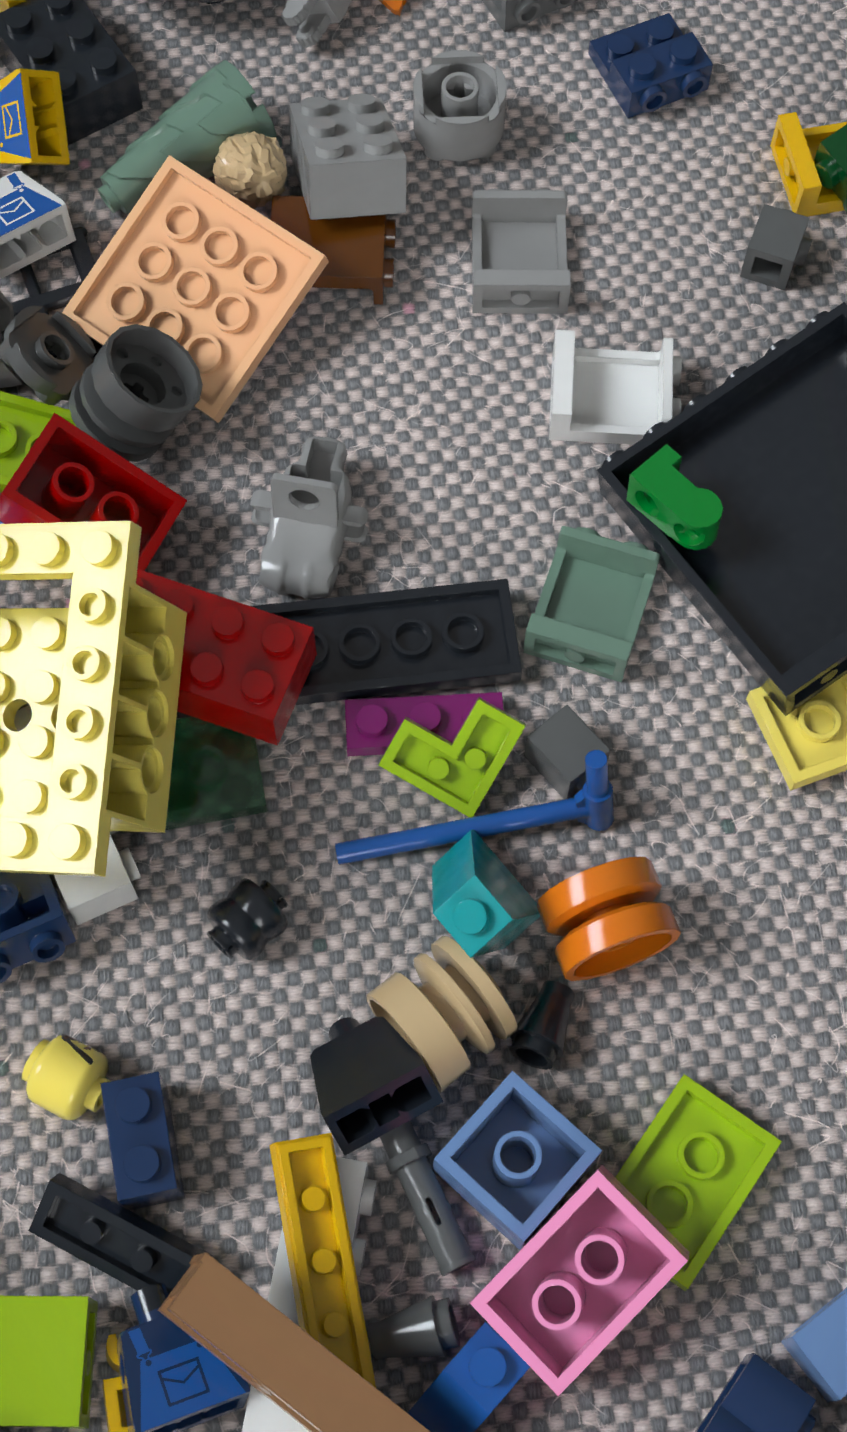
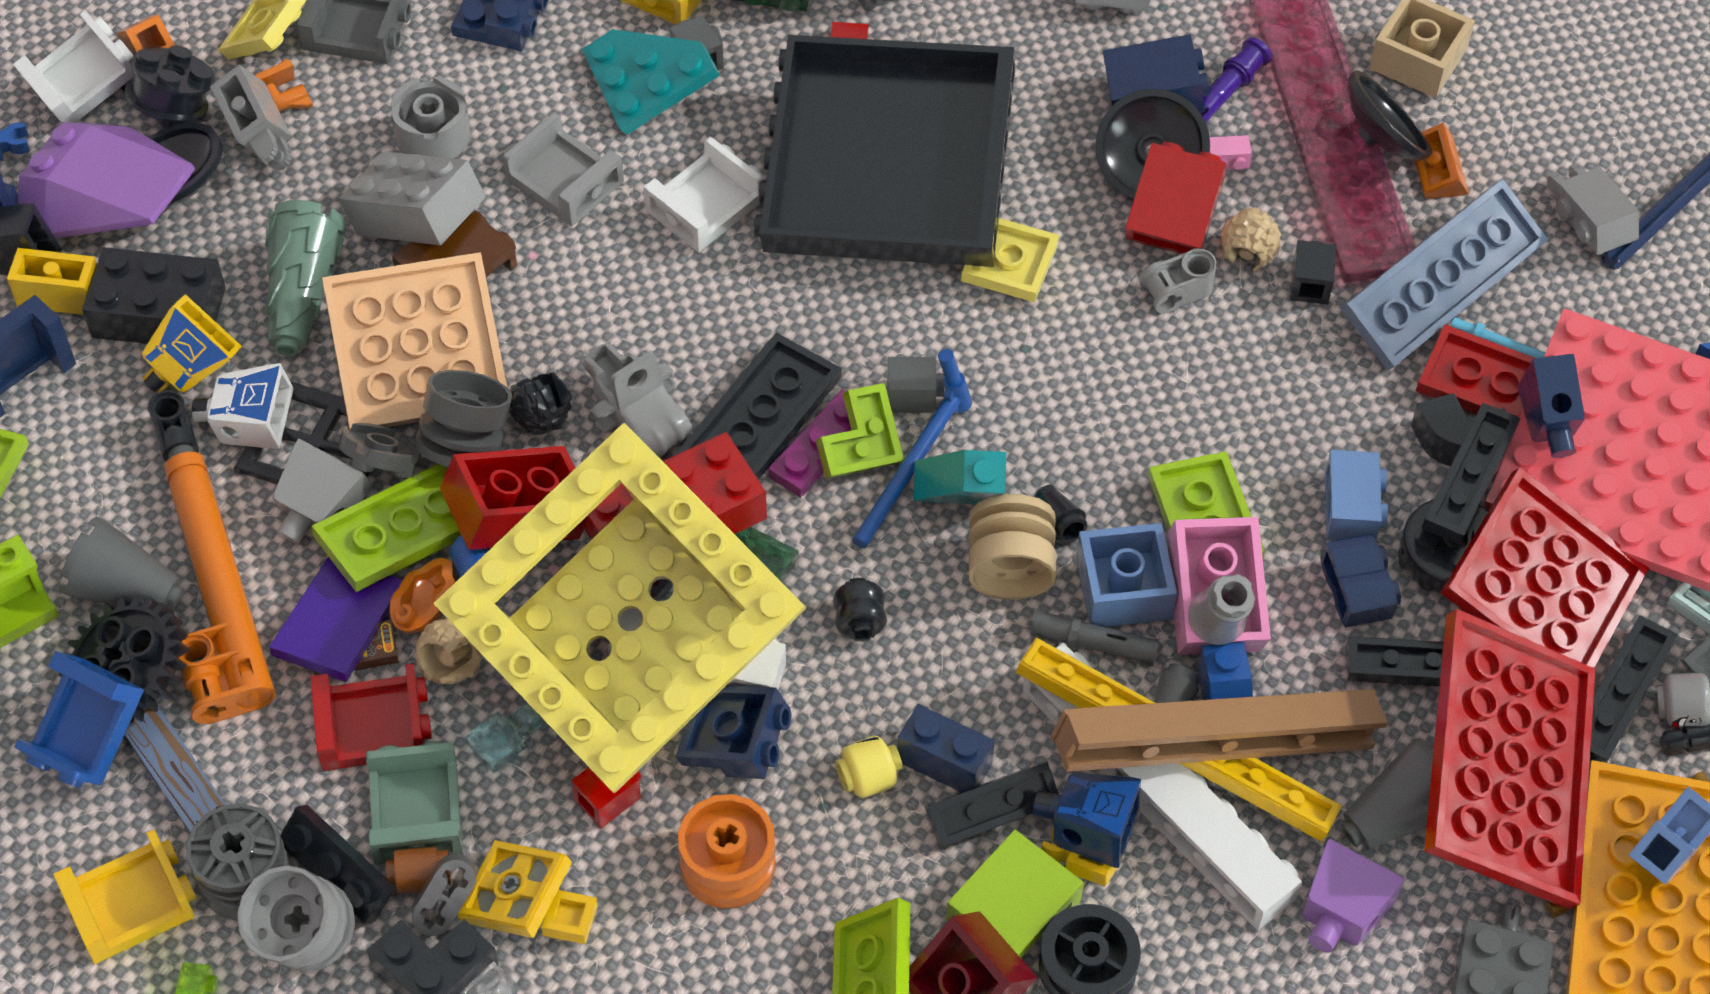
camera: 50 degrees left, 10 degrees down
(228, 442) = (540, 403): none -> black piece
(251, 168) = (360, 249): tan piece -> none
(369, 1081) = (1017, 605): black torso -> none
(541, 1299) = (1213, 618): none -> light grey plant
(592, 603) = (830, 306): sand green panel -> none
(608, 918) = (1035, 429): orange wheel -> none
(674, 502) = (827, 206): green leg -> none
(695, 231) = (647, 73): none -> teal plate

